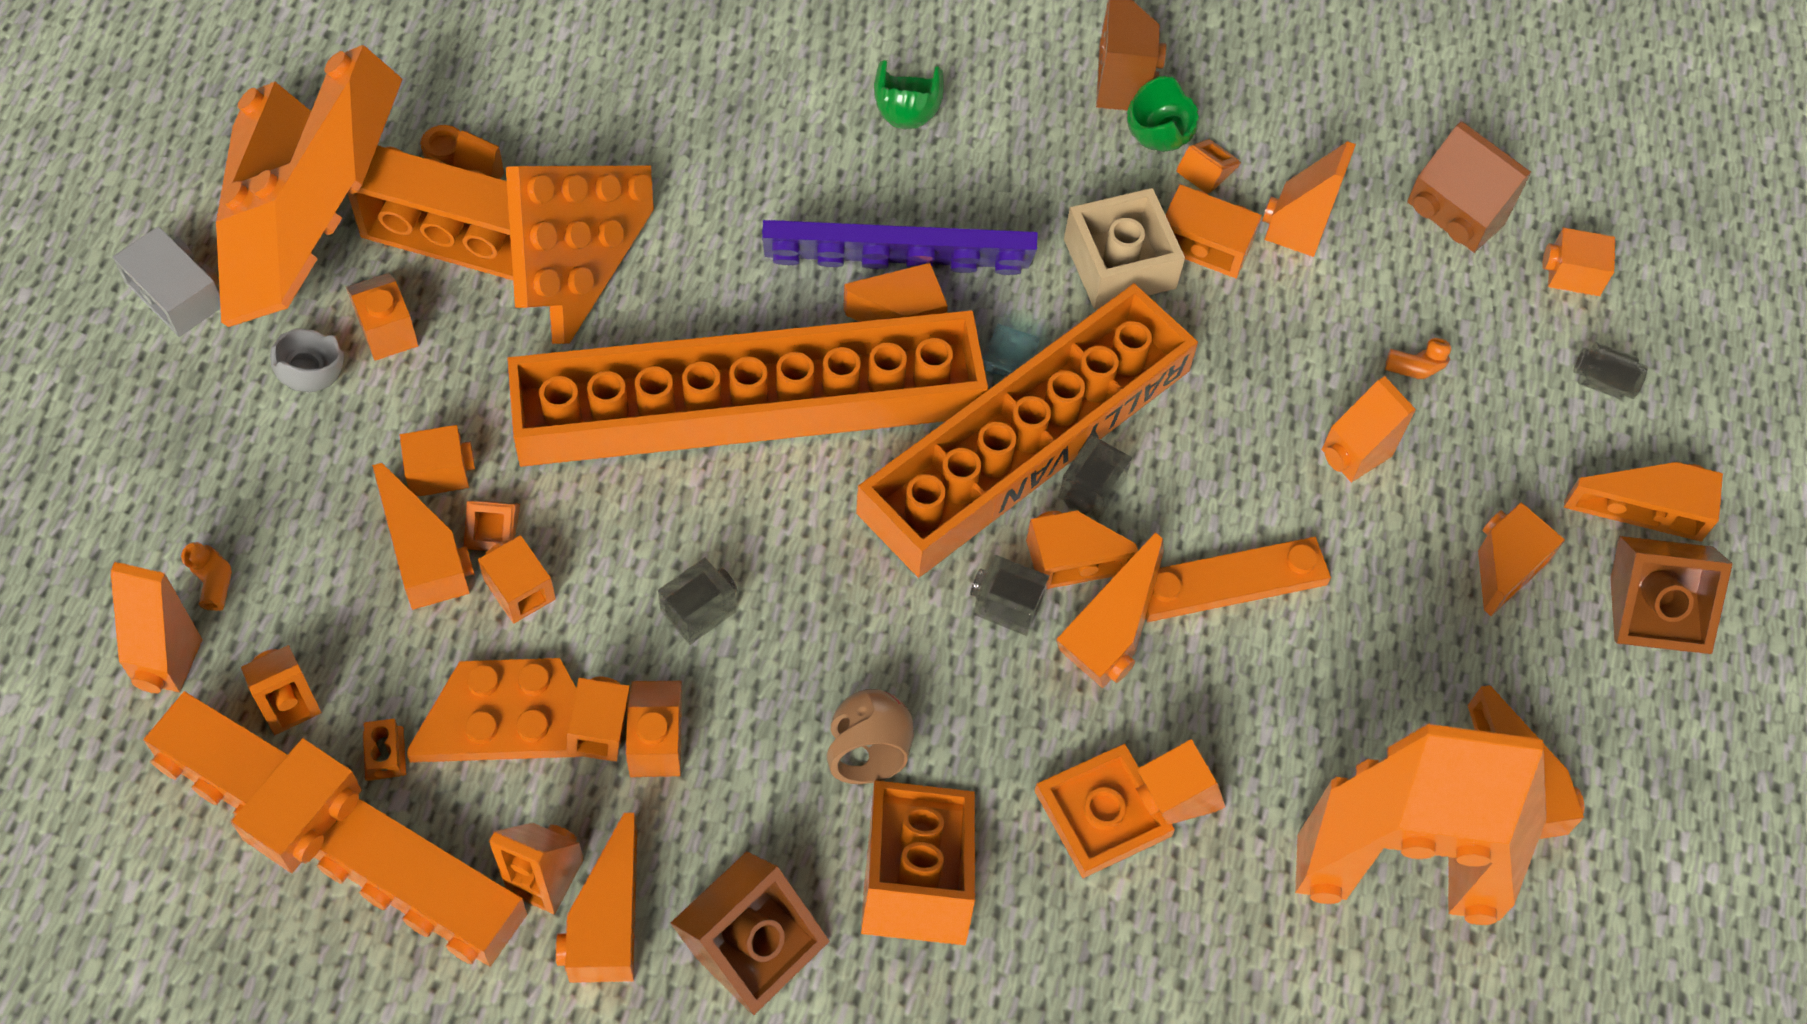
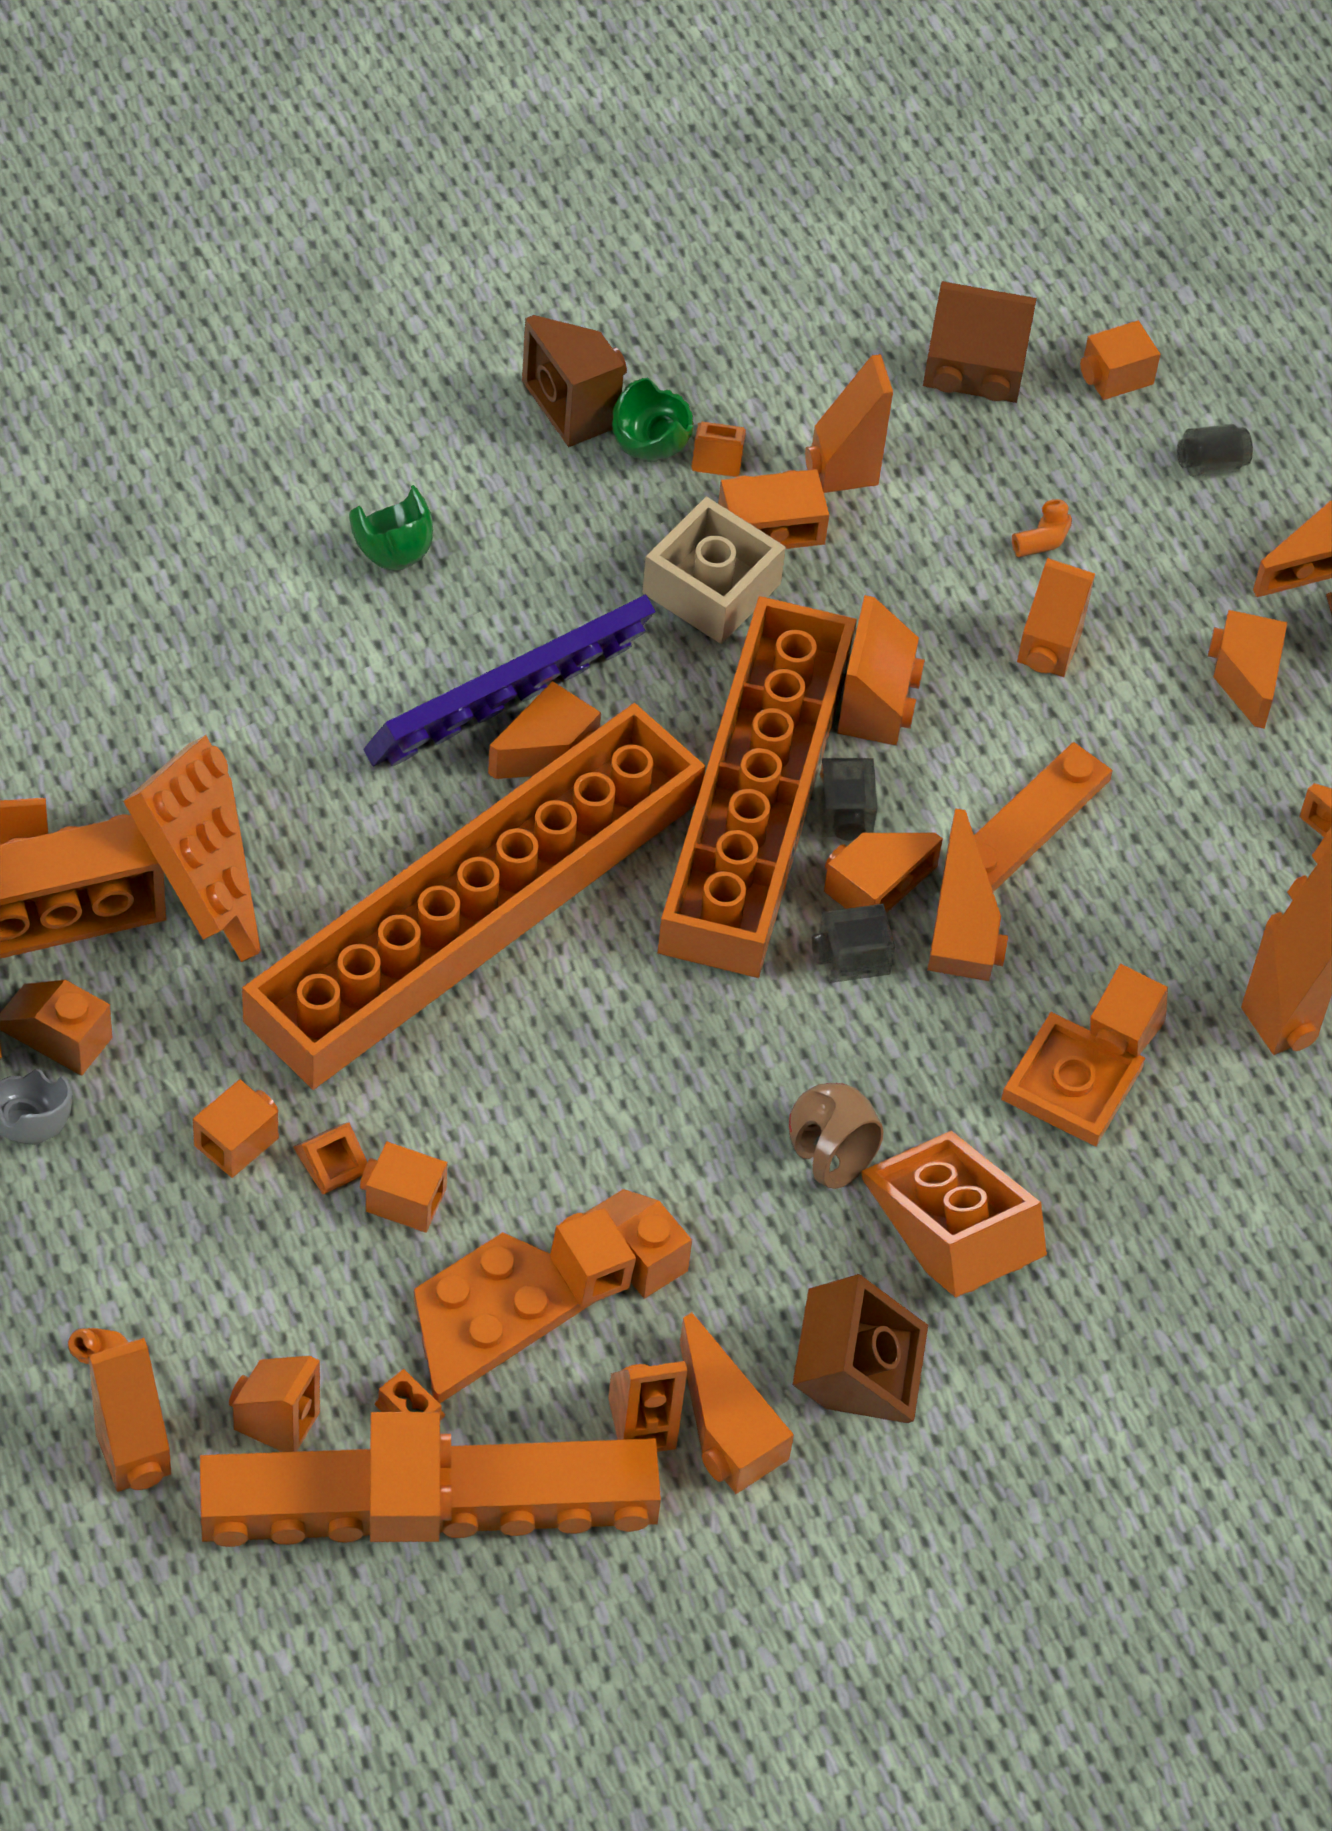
camera: 35 degrees left, 5 degrees down
(423, 545) = (285, 1205): orange slope -> none
(698, 600) = (585, 1109): clear smoke brick -> none
(1009, 350) = (686, 723): clear light blue plate -> none
(1189, 395) = (880, 676): none -> orange slope

